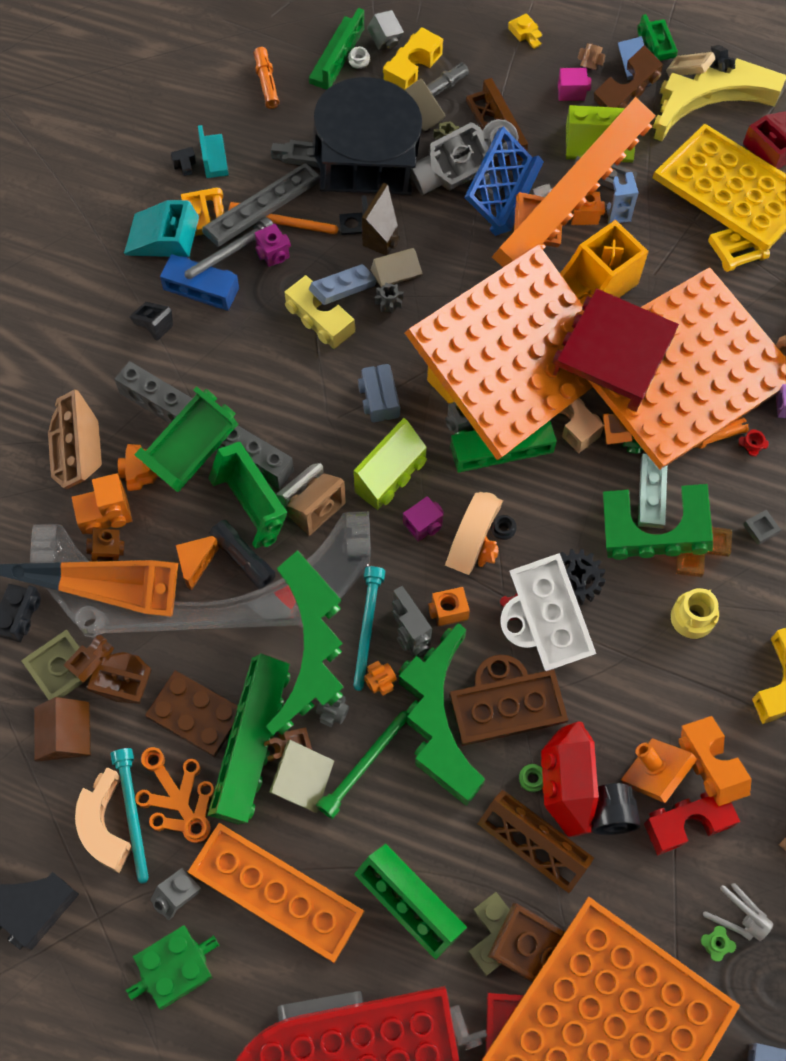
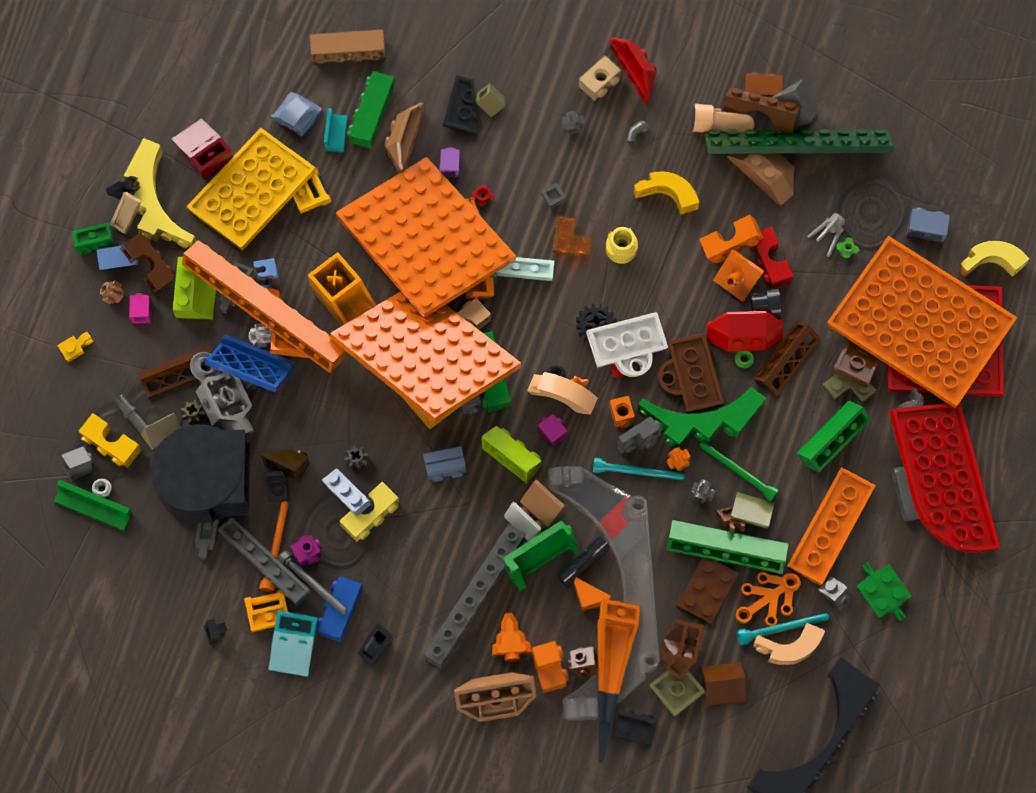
camera: 90 degrees left, 5 degrees up
(189, 439) = (497, 600): green panel -> none
(213, 154) = (205, 608): teal panel -> none
(264, 71) = (115, 568): orange pin -> none
(315, 680) = (691, 497): green arch -> none
(396, 267) = (328, 452): dark tan slope -> none
(616, 346) = (424, 280): dark red panel -> none
(690, 536) = (564, 239): green arch -> none

